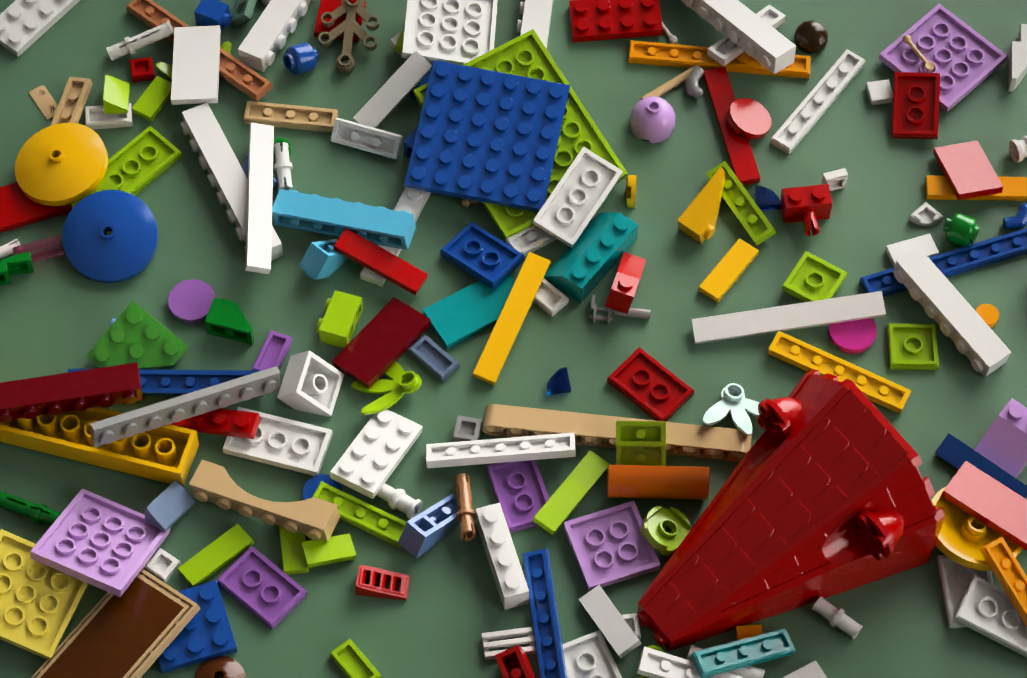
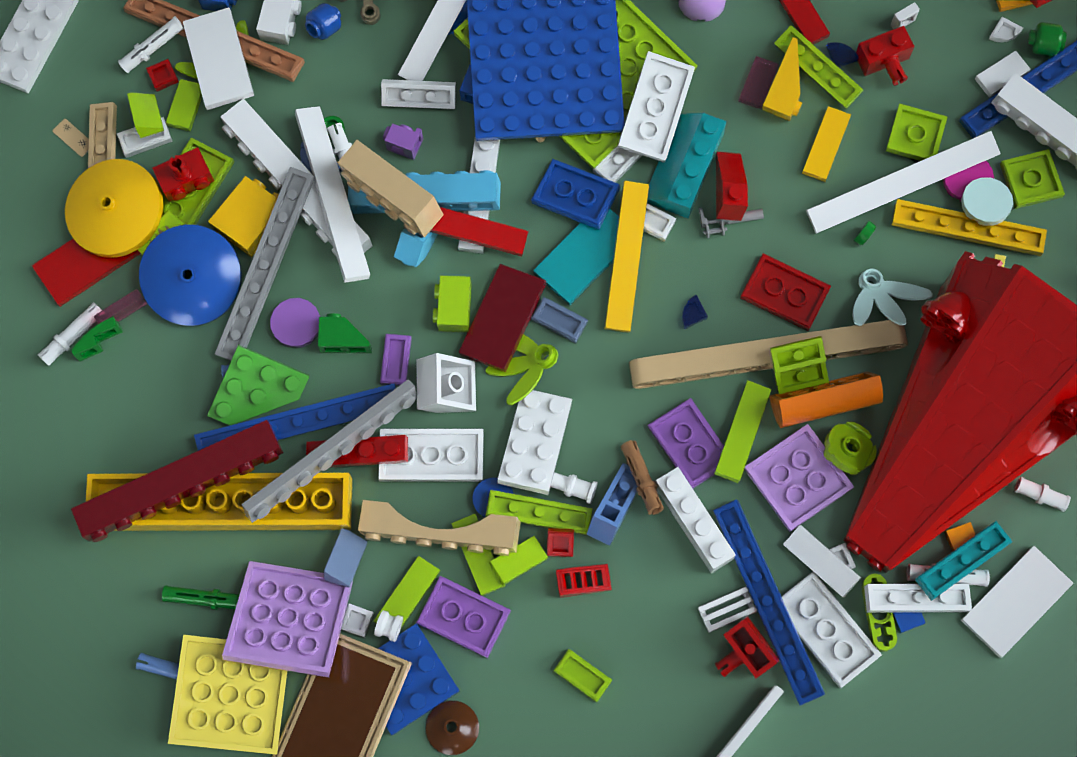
camera: 10 degrees left, 15 degrees up
(132, 151) = (183, 175): none -> red brick
(180, 201) = (244, 215): none -> yellow brick
(182, 240) = (265, 262): none -> light grey plate
(189, 572) = (388, 626): none -> white wheel
(290, 116) = (332, 88): tan tile -> none
(311, 202) = (390, 189): none -> tan brick
(340, 173) = (403, 140): none -> medium lavender brick
(371, 545) = (560, 542): none -> red tile
(467, 429) = (618, 391): light grey plate -> none
(500, 450) = (660, 406): white plate -> none
(631, 191) = (704, 83): yellow tile -> none
(679, 203) = (758, 82): none -> clear pink tile
(739, 352) = (865, 233): none -> green tile
(861, 352) = (987, 201): none -> light aqua tile

